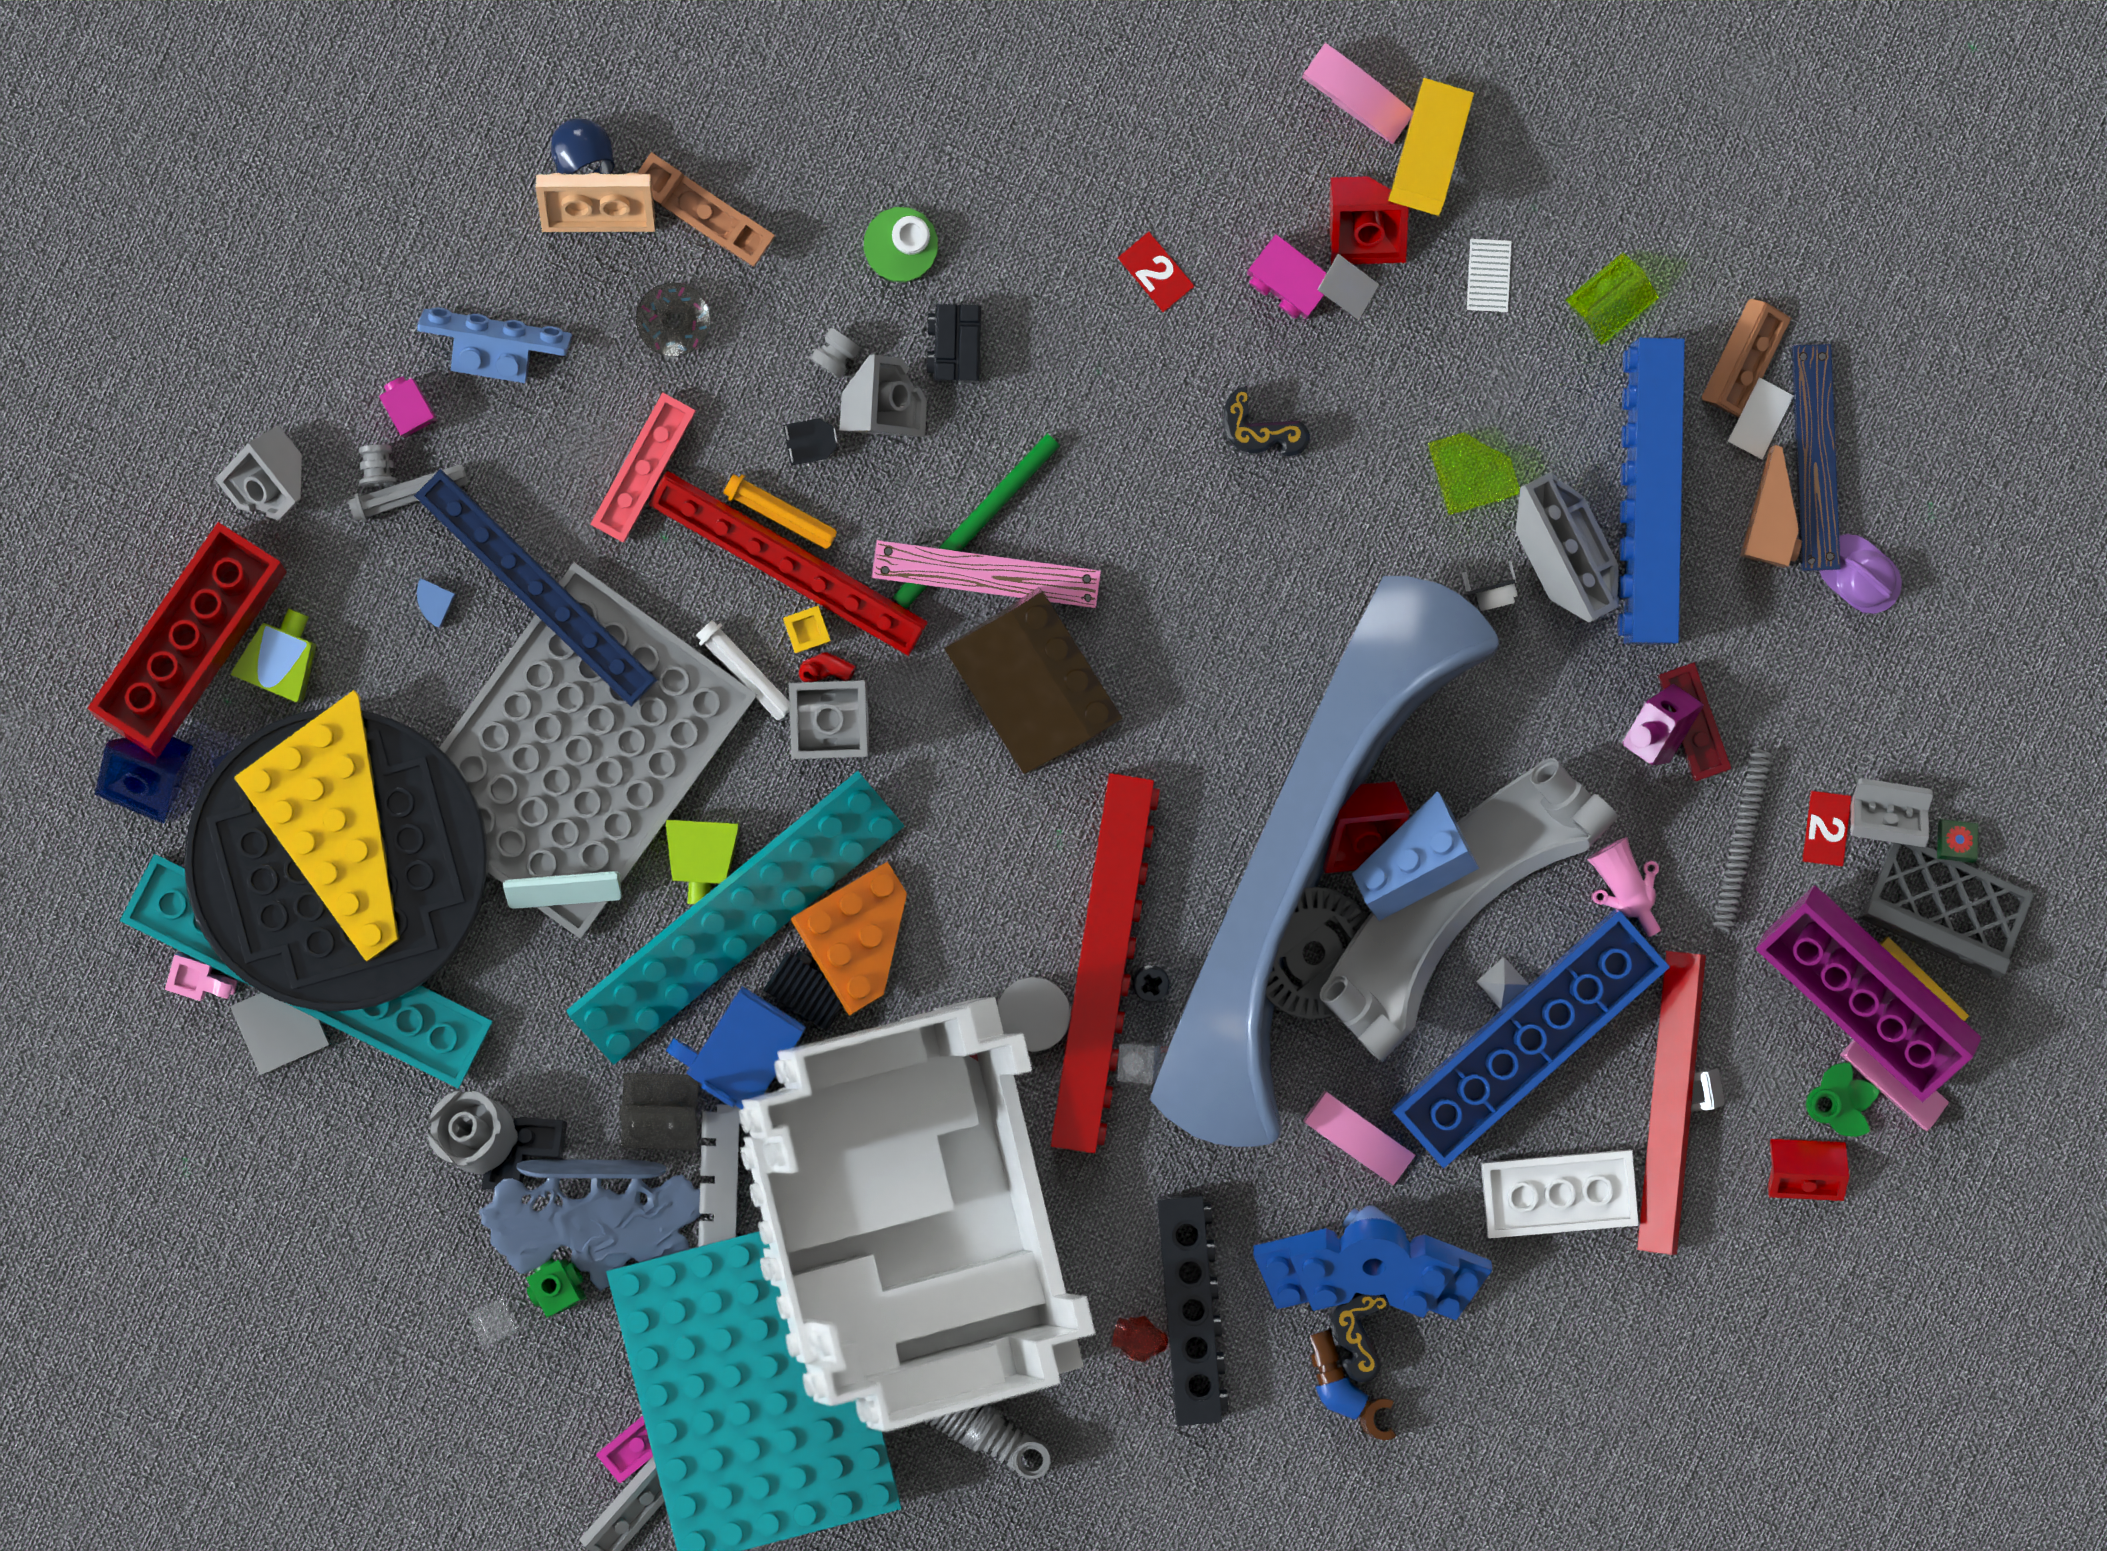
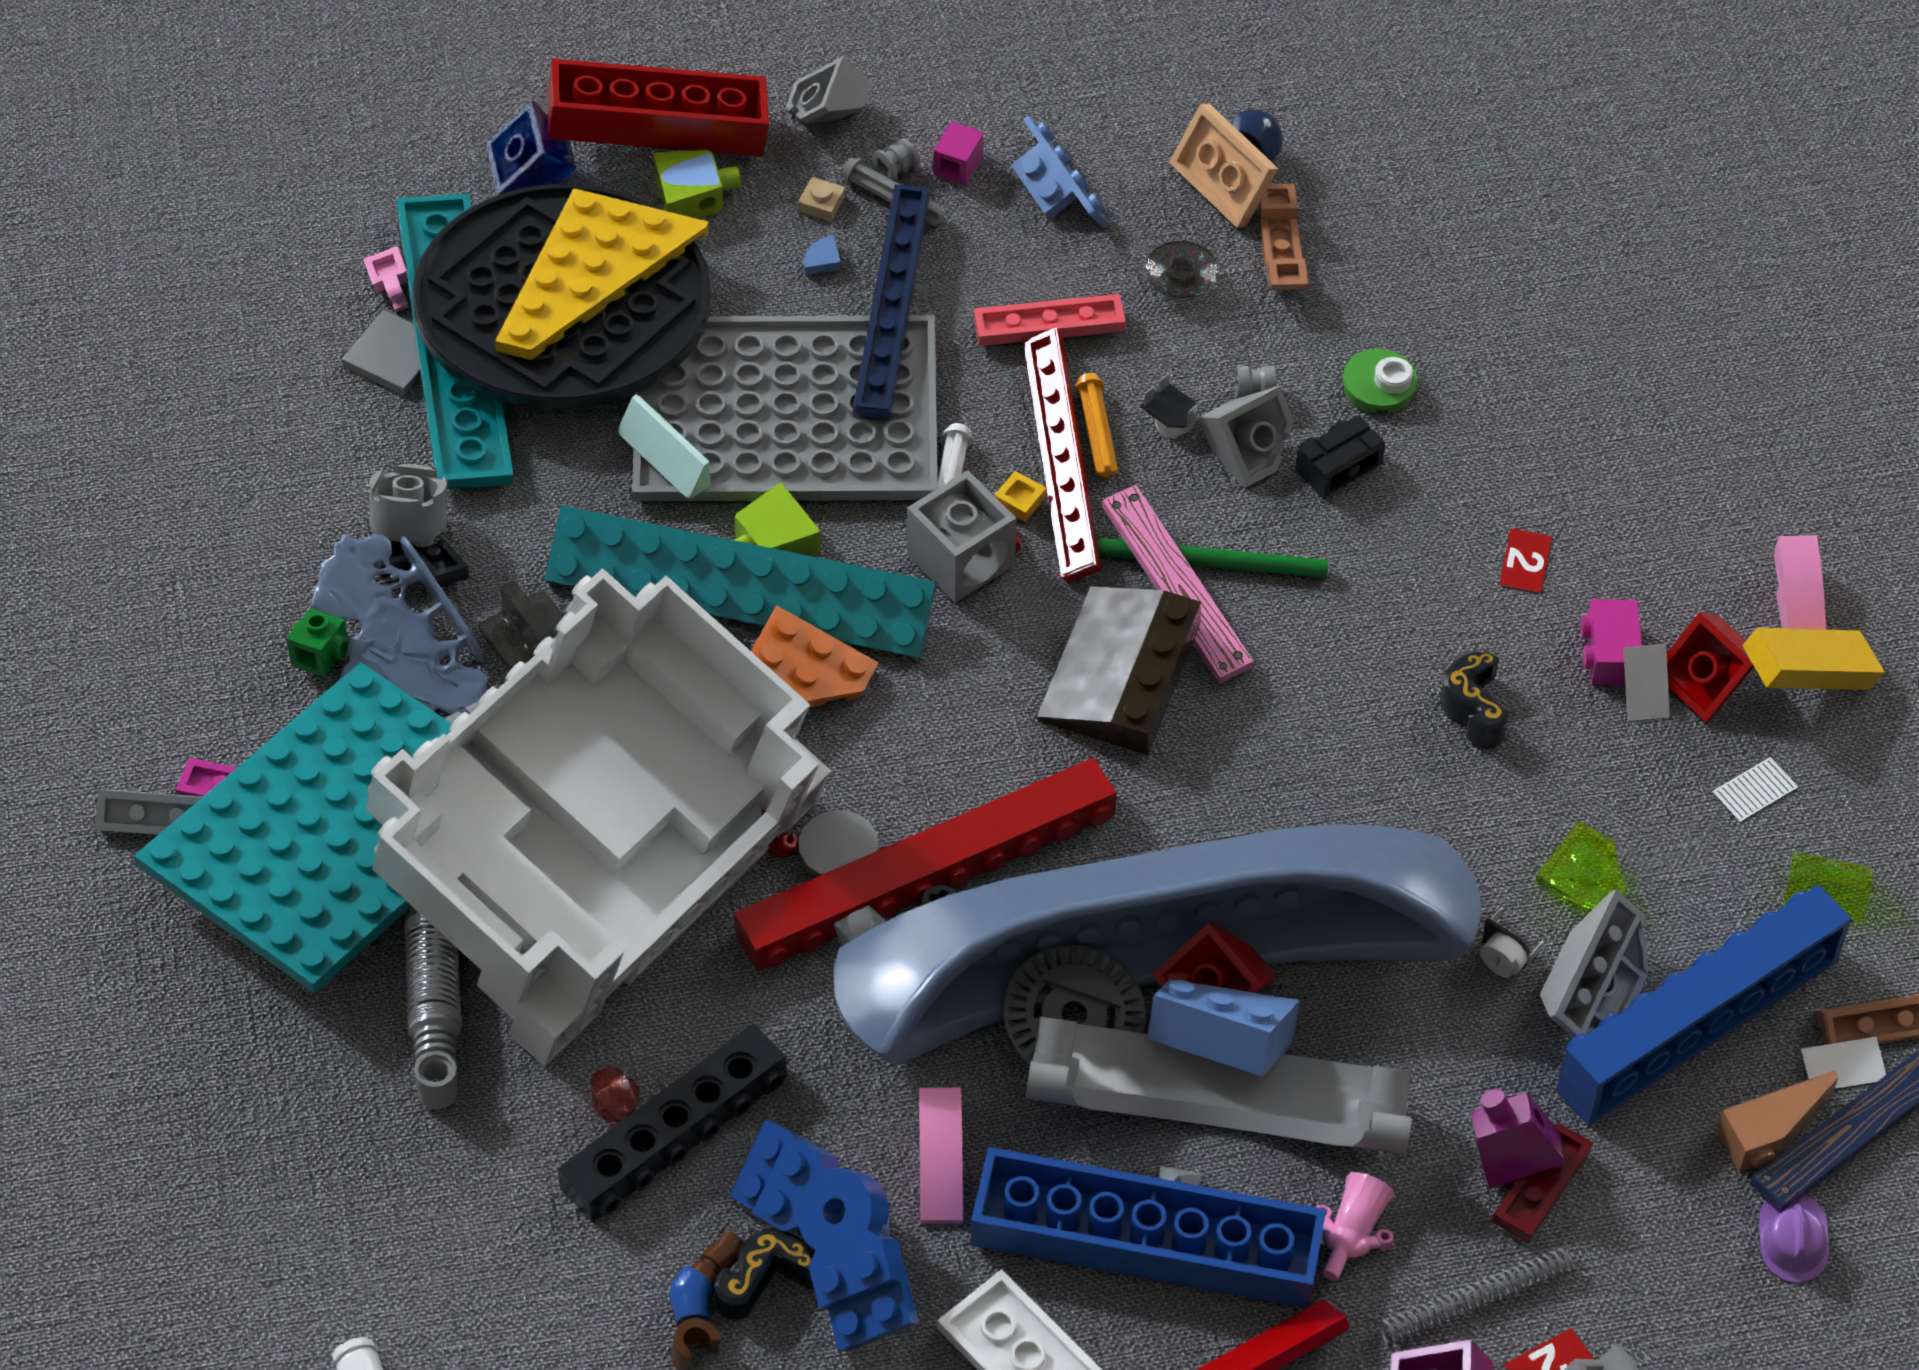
camera: 50 degrees right, 35 degrees down
(368, 555) = (821, 199): none -> tan plate
(493, 1322) = (252, 628): clear tile -> none

